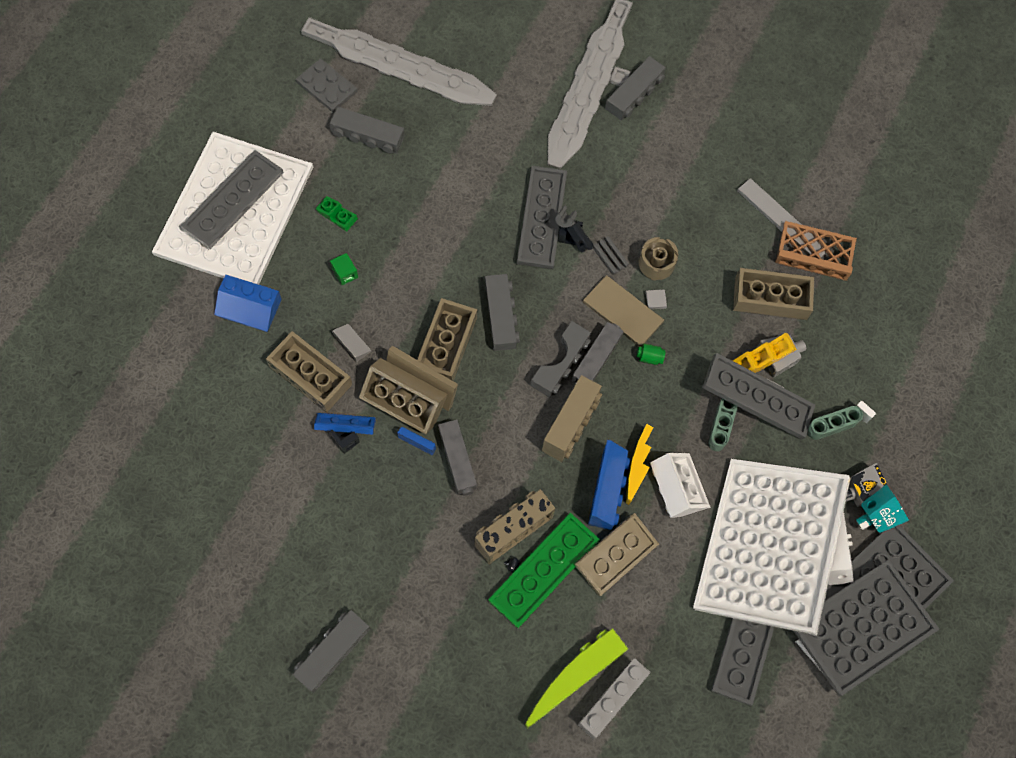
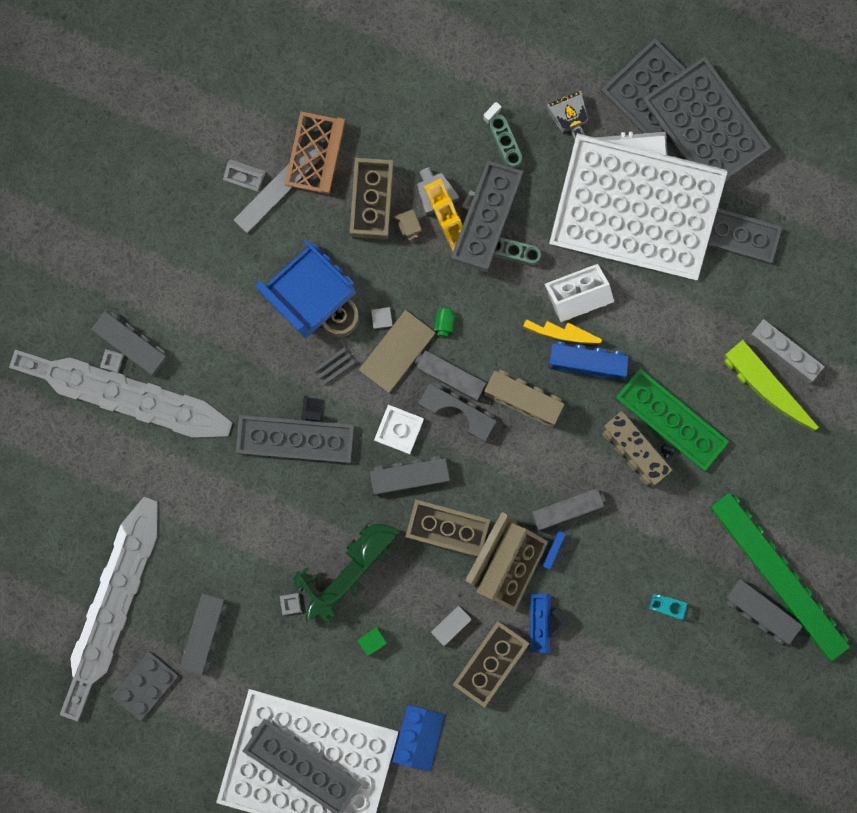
camera: 85 degrees left, 15 degrees up
(336, 213) = (304, 657): green slope -> none
(347, 552) = (668, 606): none -> teal leg
(365, 673) = (779, 577): none -> green brick
(387, 205) = (290, 604): none -> light grey tile
(427, 265) = (364, 552): none -> dark green piece
(546, 306) = (399, 429): none -> white plate
(574, 228) = (313, 404): piece -> none
(616, 554) = (652, 352): dark tan tile -> none
(682, 229) = (308, 290): none -> blue panel
(748, 327) = (408, 225): none -> dark tan window
(792, 190) = (244, 175): none -> light grey slope
(882, 511) = (595, 101): teal torso -> none

